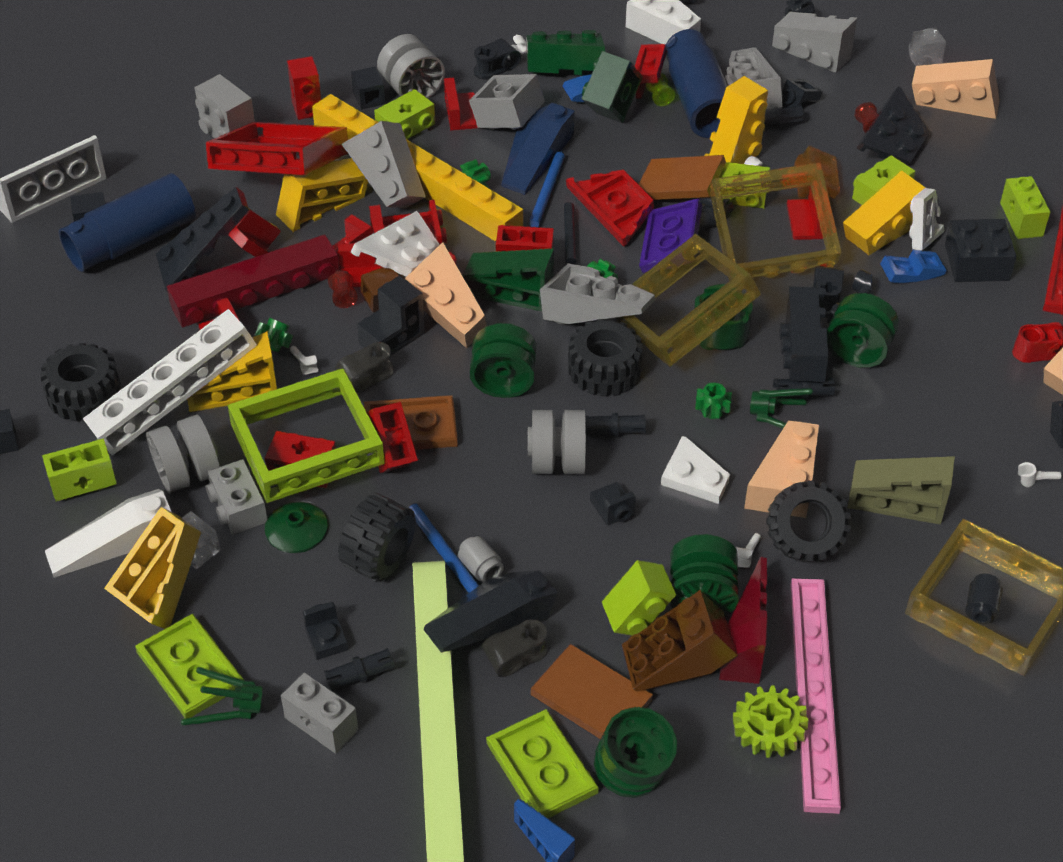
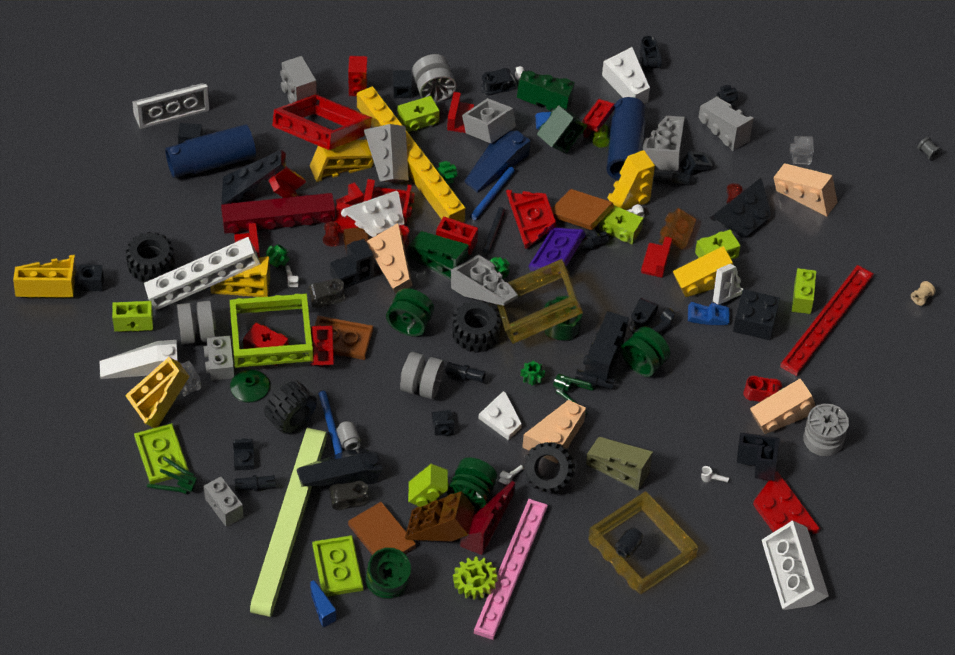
camera: 15 degrees right, 5 degrees up
(771, 181) = (624, 231): clear yellow window -> none

